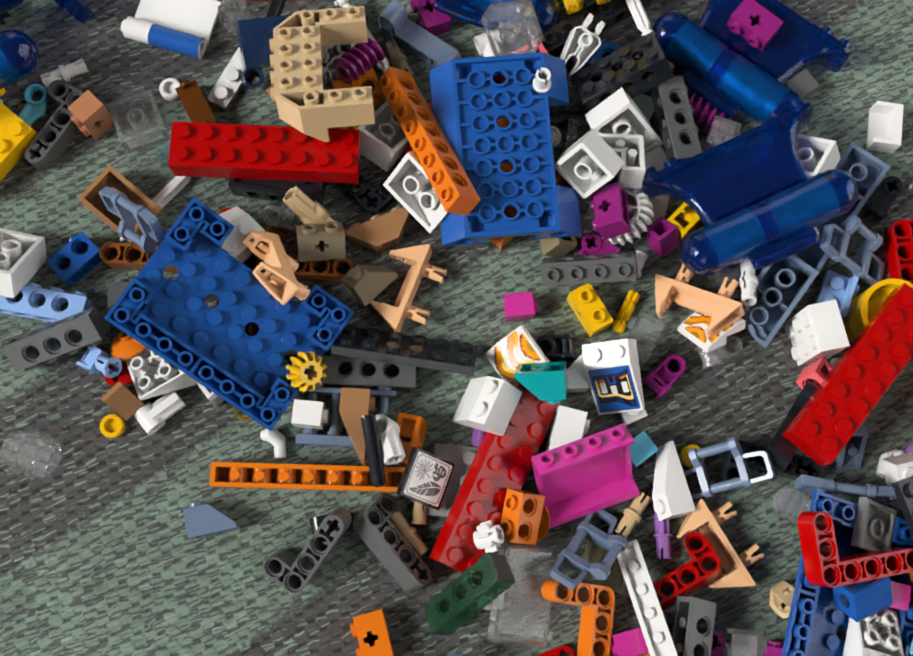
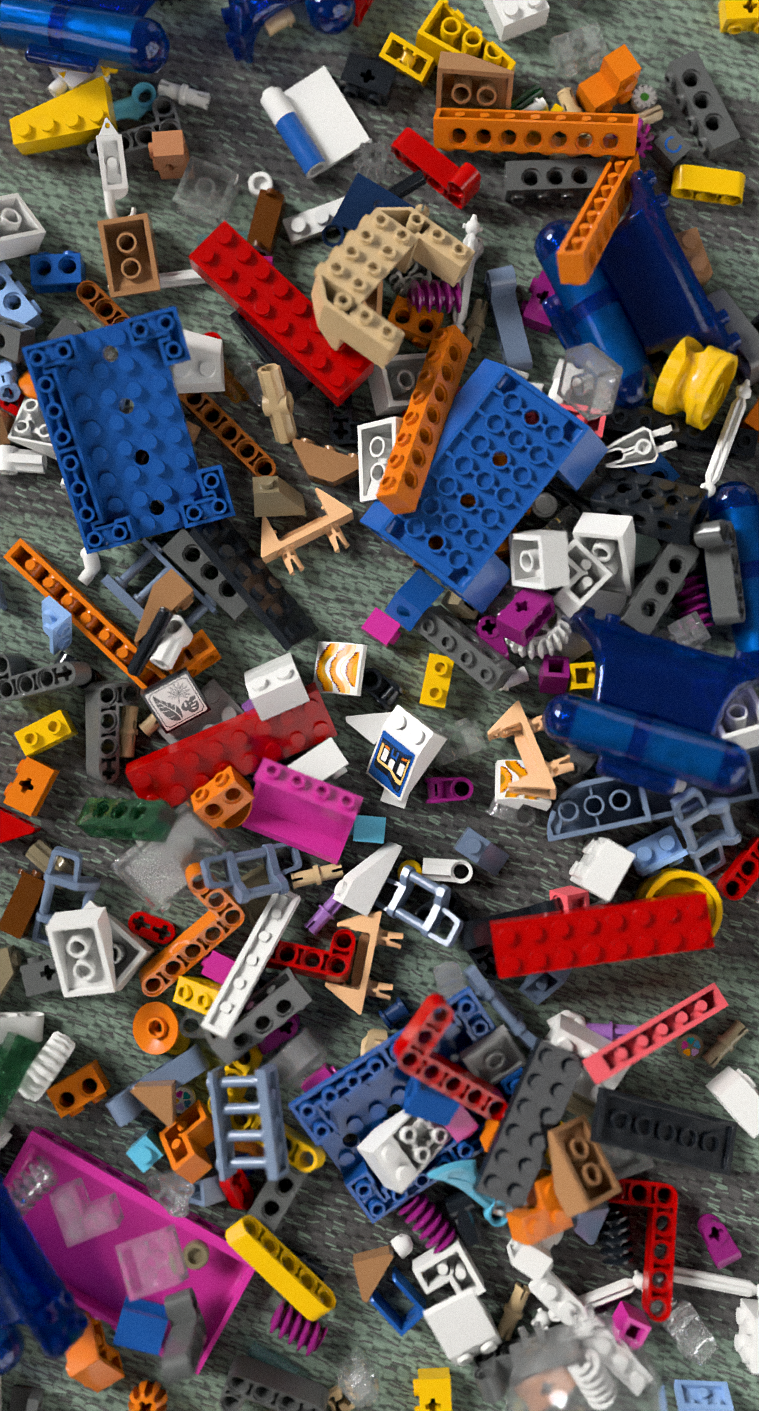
camera: 45 degrees right, 10 degrees up
(56, 155) = (112, 168): none -> white plate
(130, 213) = (122, 282): sand blue bar -> none
(278, 267) = (205, 421): light nougat hose -> none
(290, 501) = (56, 624): none -> light blue bracket
(309, 414) = (130, 567): white brick -> none
(312, 378) = (156, 521): yellow gear -> none
(320, 241) = (262, 430): dark tan brick -> none
(350, 588) = (46, 733): none -> yellow brick
(488, 537) = (178, 789): white gear -> none
(526, 267) = (413, 599): none -> blue piece
(542, 80) = (555, 454): white pin -> none
(544, 380) = (337, 706): teal slope -> none
(625, 311) = (467, 709): yellow axle -> none
(709, 76) = (723, 570): none -> dark grey beam
(714, 432) = (443, 870): none -> white piece
(724, 397) = (481, 851): none -> sand blue slope
(748, 283) = (582, 777): white pin -> none
(775, 563) = (394, 1013): none -> dark blue bush

